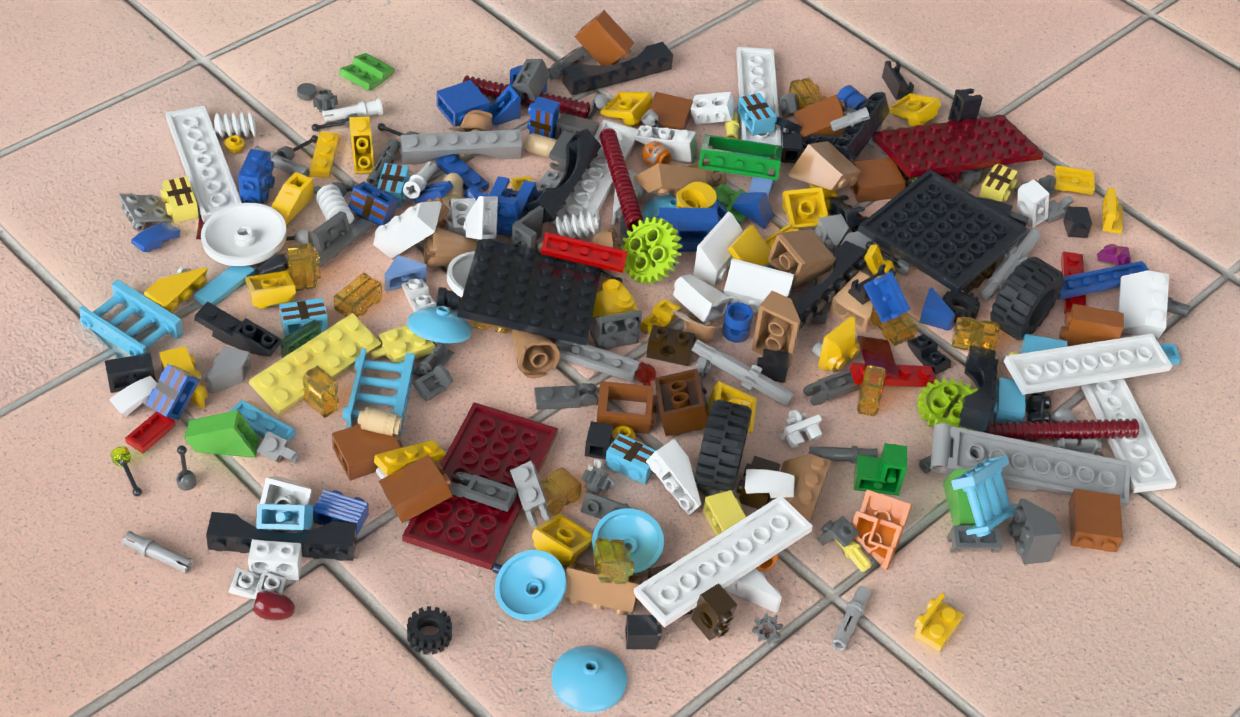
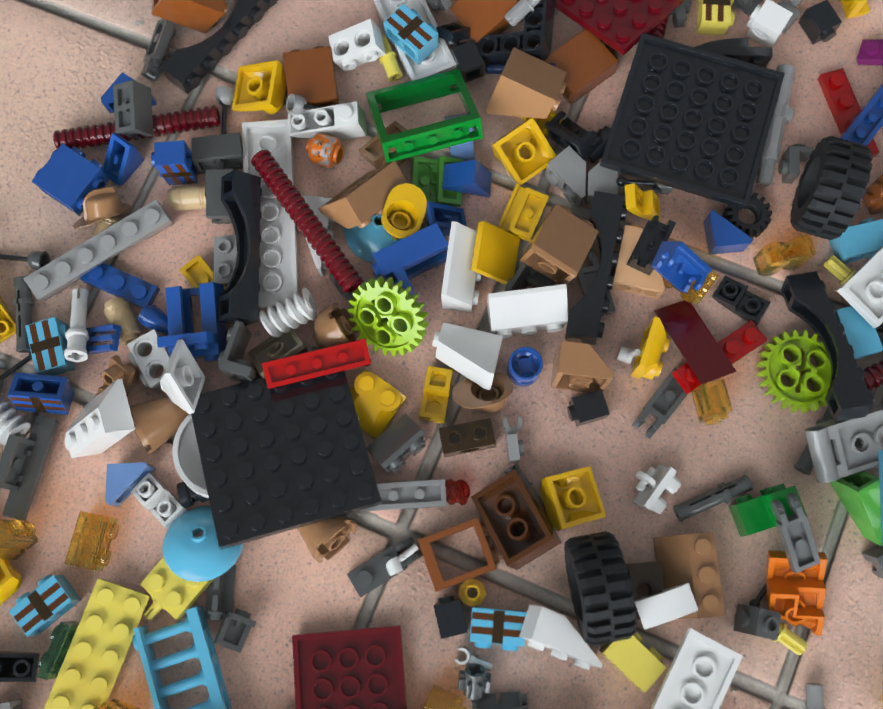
camera: 15 degrees left, 30 degrees up
(575, 389) = (394, 566): none -> white hand
(749, 376) = (572, 443): light grey piece -> none
(891, 470) = (796, 535): none -> dark grey hinge

